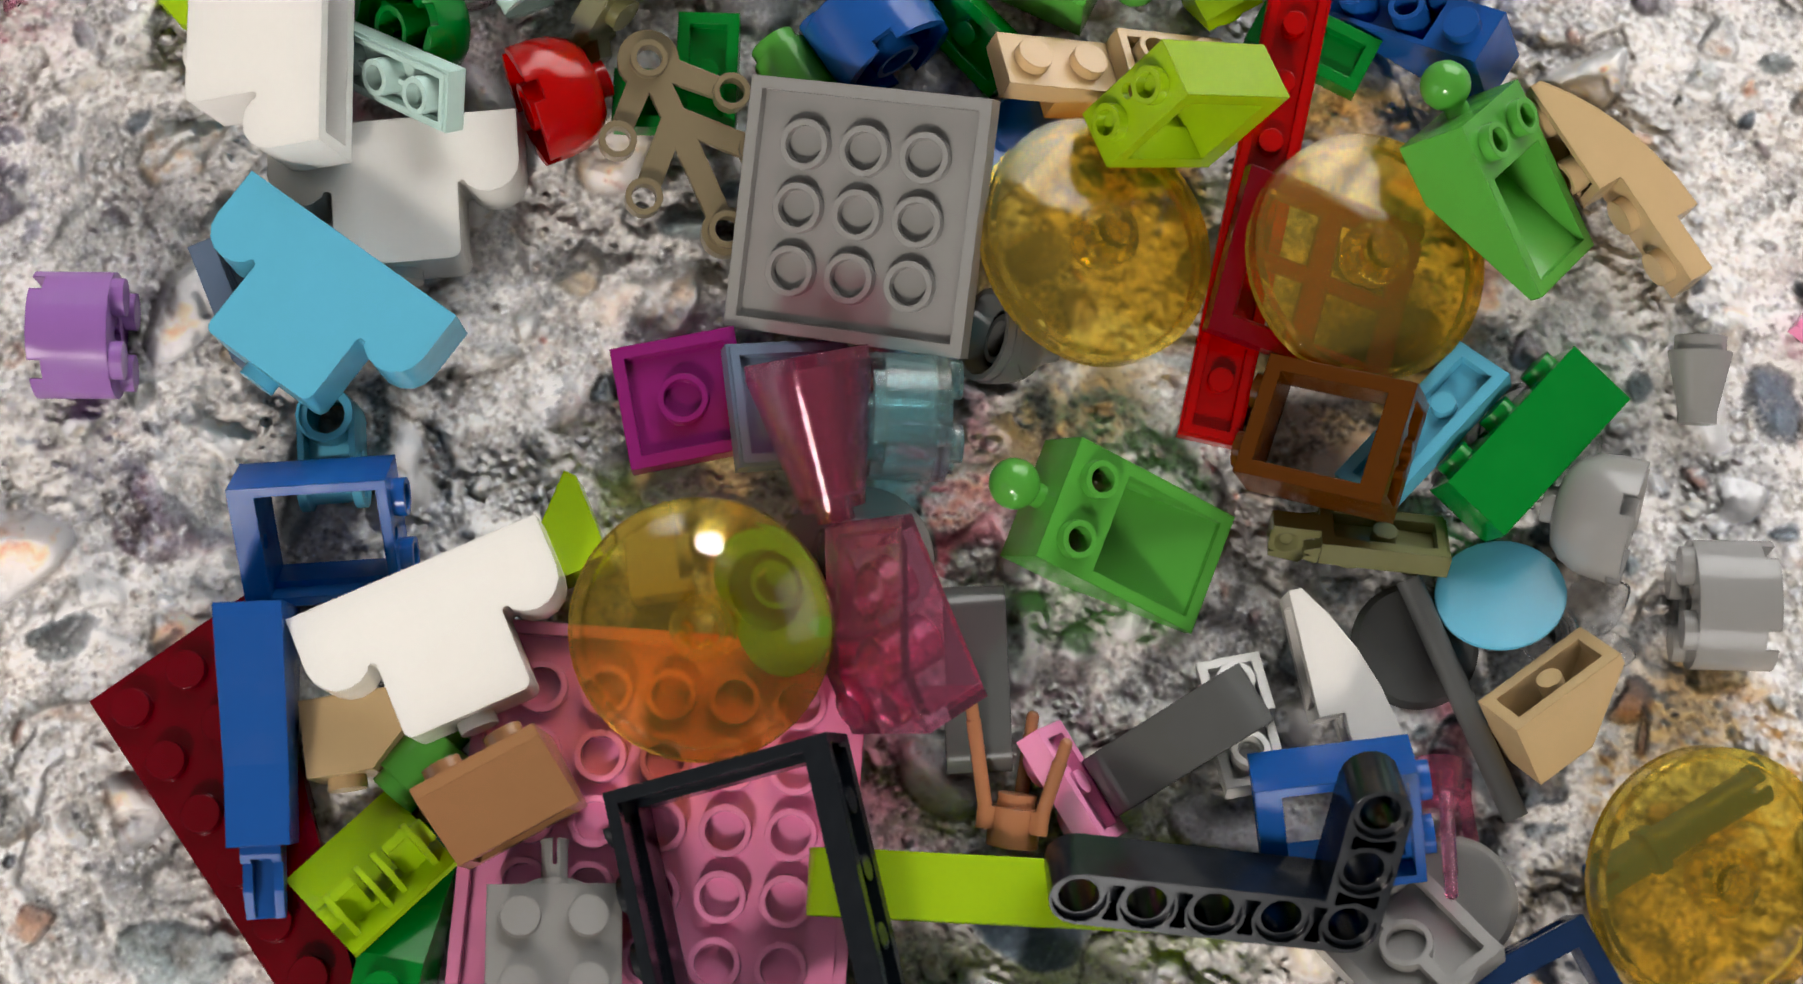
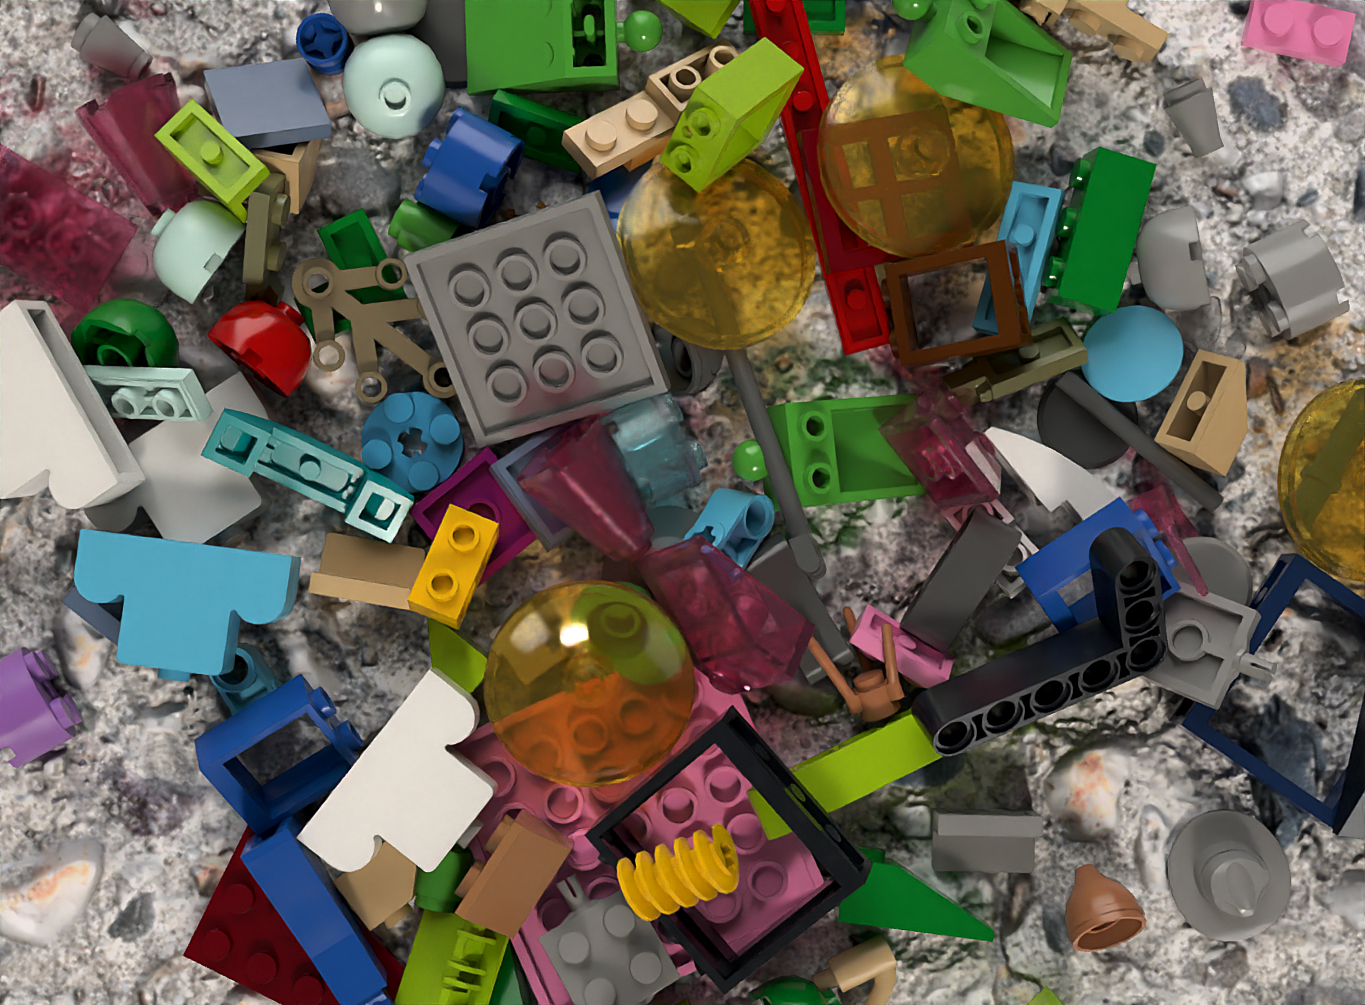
camera: 30 degrees left, 10 degrees up
(528, 246) = (311, 468): none -> teal slope
(532, 396) = (367, 570): none -> tan panel
(624, 425) = (453, 566): none -> yellow brick
(647, 249) = (440, 431): none -> dark azure plate
(685, 888) = (682, 878): none -> yellow piece
(964, 545) = (735, 523): none -> medium azure piece
(1020, 596) = (803, 544): none -> dark grey hinge
(1231, 581) = (943, 450): none -> clear pink slope

